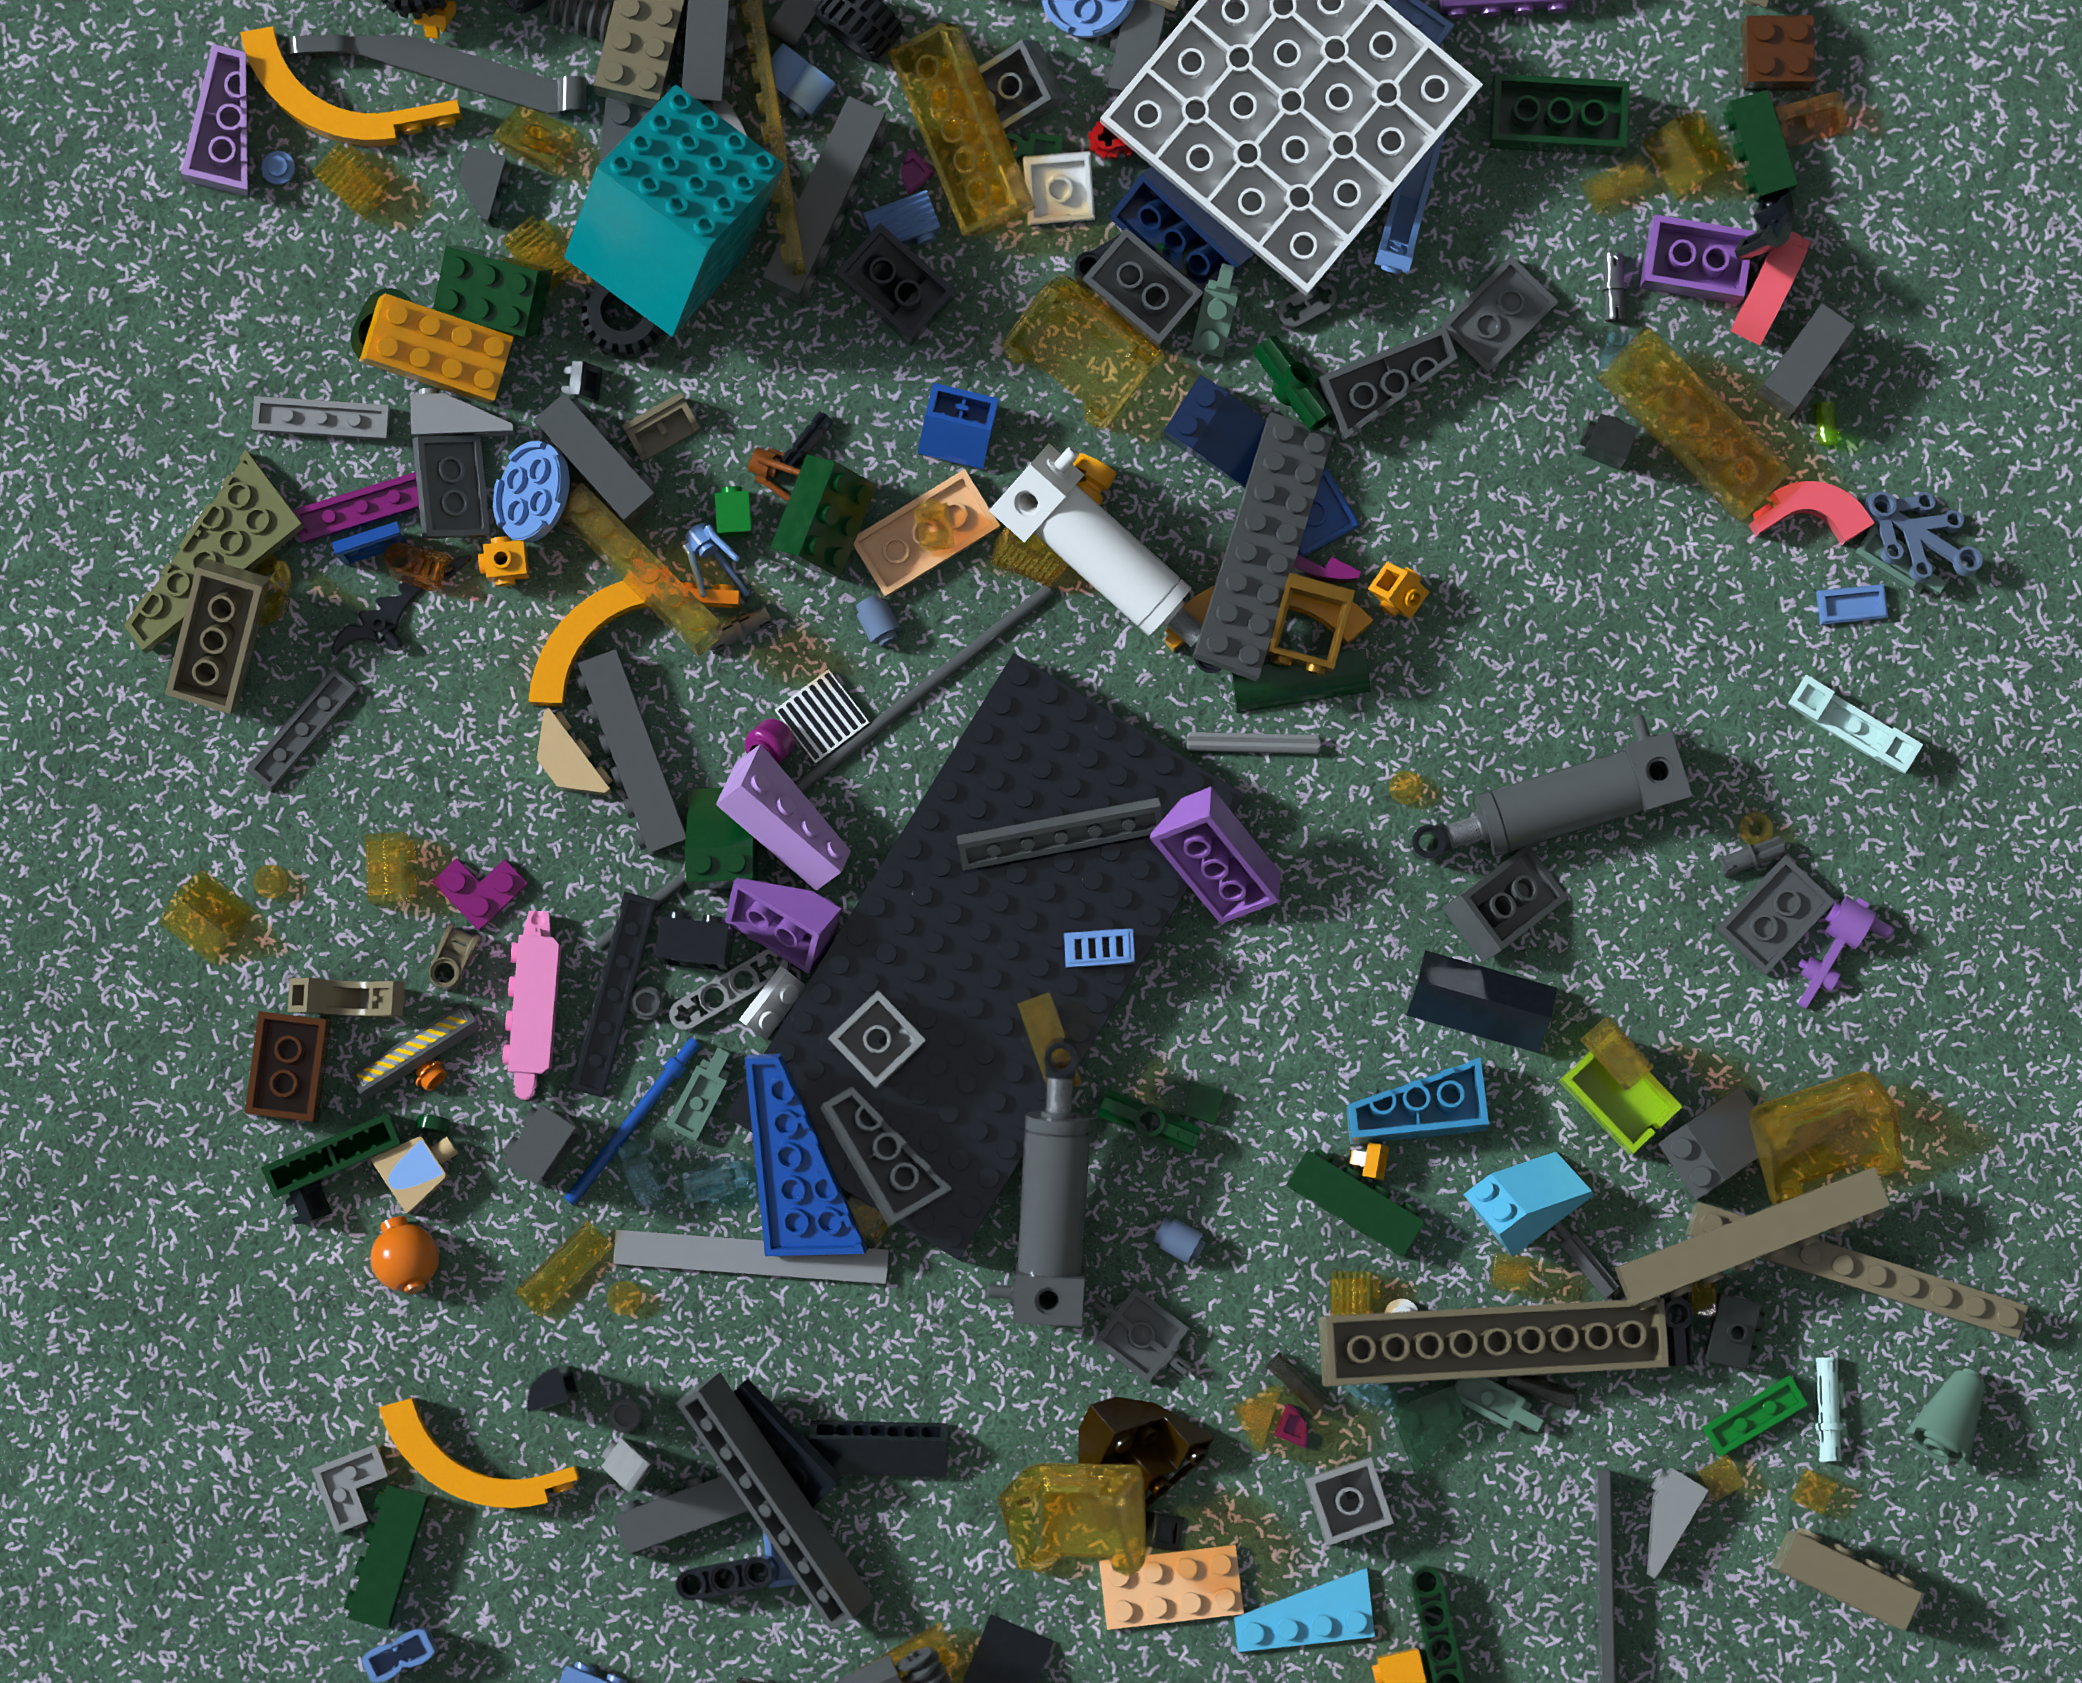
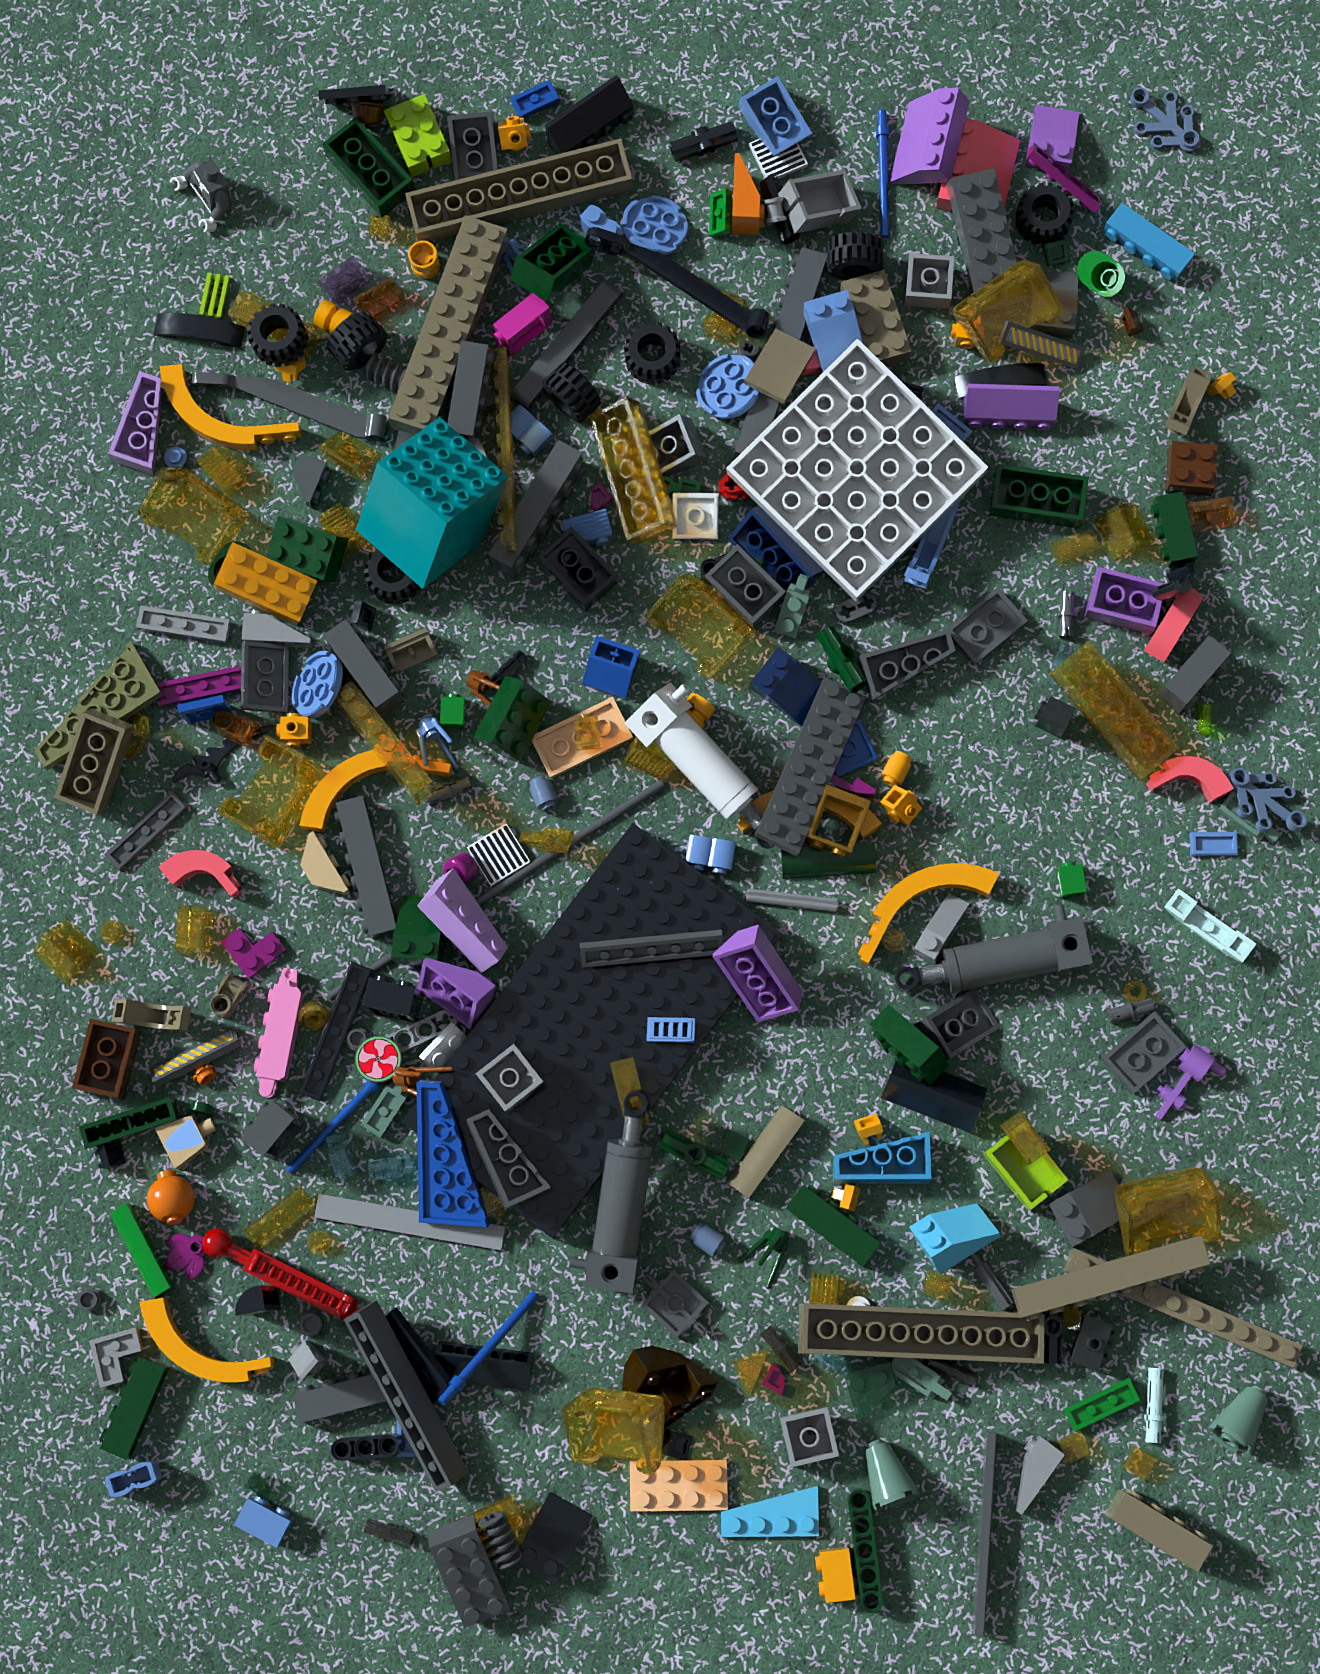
camera: 15 degrees right, 5 degrees down
(303, 1412) = (89, 1300): none -> dark grey plate
(316, 248) = (192, 511): none -> clear yellow windscreen
(371, 1335) = (142, 1250): none -> green brick
(379, 769) = (194, 862): none -> coral arch
(432, 1337) = (183, 1256): none -> magenta plate
(482, 1314) = (219, 1243): none -> red gear
(485, 657) = (275, 794): none -> clear yellow windscreen
(576, 1645) = (256, 1483): none -> clear green plate
(579, 975) = (313, 1015): none -> clear yellow cone
(681, 1029) = (378, 1059): none -> tile
(729, 1050) = (408, 1077): none -> dark orange plant
(848, 1475) = (458, 1382): none -> blue bar
(894, 688) = (549, 839): none -> clear yellow bracket
(1130, 686) = (710, 853): none -> medium blue brick
(1248, 1107) = (765, 1151): none -> dark tan brick
(1276, 1232) = (776, 1240): none -> dark green plant
(1387, 537) = (896, 768): none -> light orange brick
(1393, 1058) = (869, 1126): none -> light orange tile
(1440, 938) = (908, 1045): none -> dark green brick
(1464, 1546) = (888, 1477): none -> sand green cone
(1465, 688) = (940, 876): none -> light orange arch
(1471, 764) = (941, 928): none -> light grey slope
(1652, 676) = (1071, 880): none -> green brick

